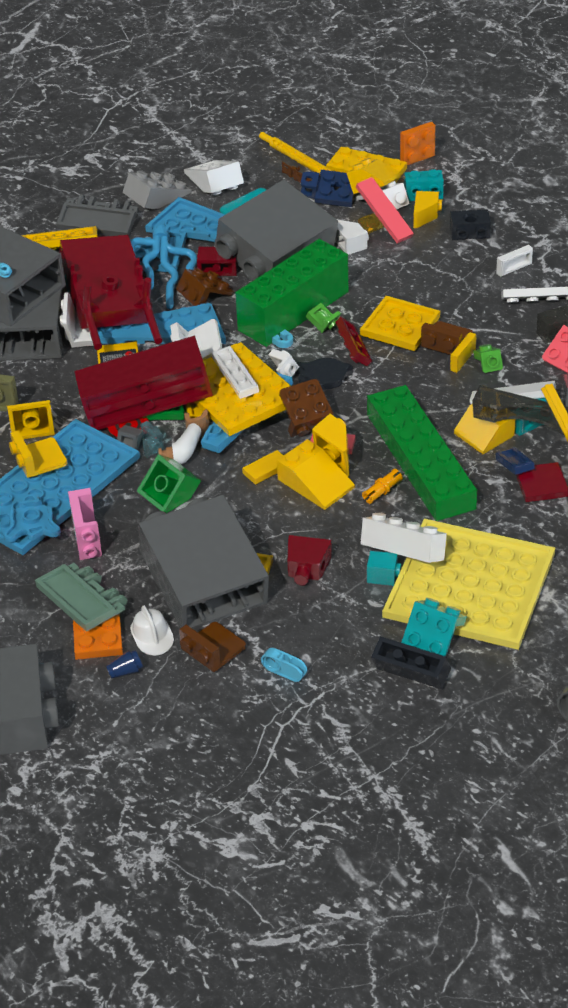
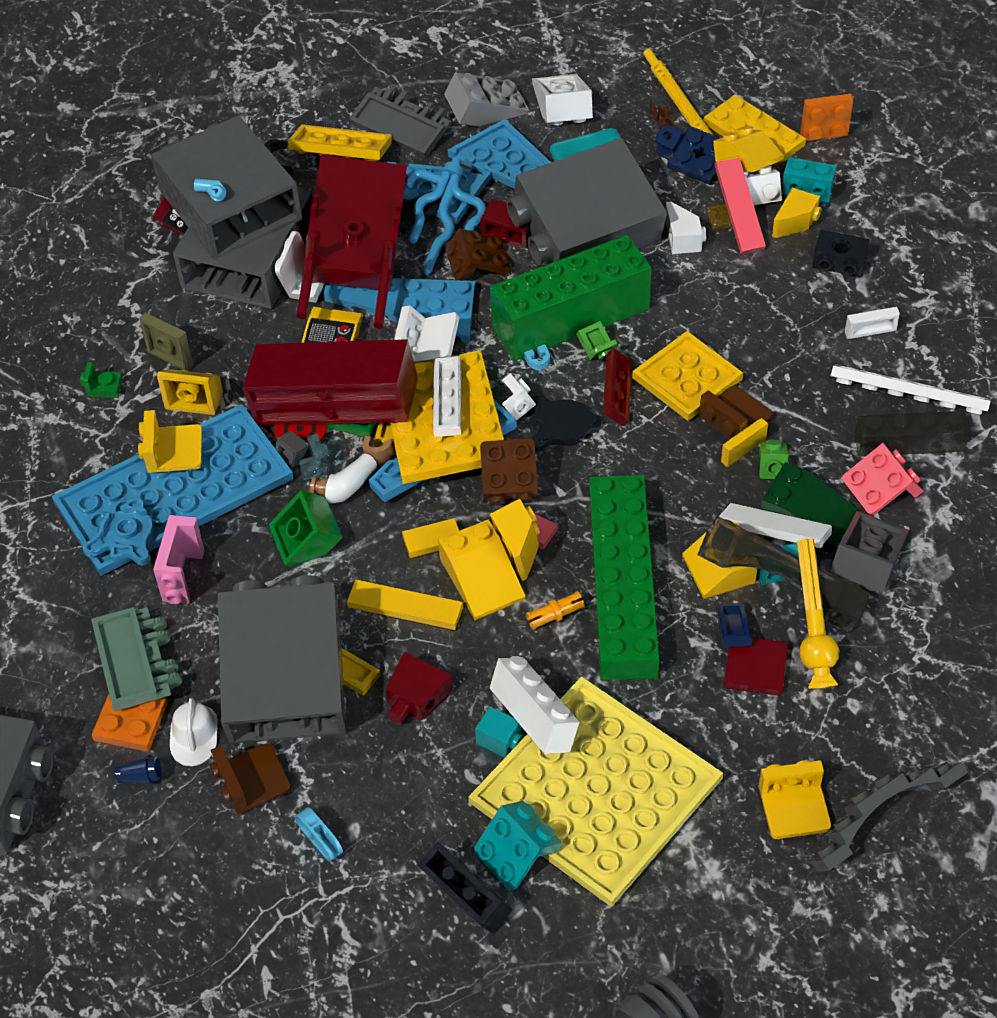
camera: 20 degrees right, 10 degrees up
(273, 511) = (405, 604): none -> yellow tile
(521, 370) = (806, 497): none -> dark green slope

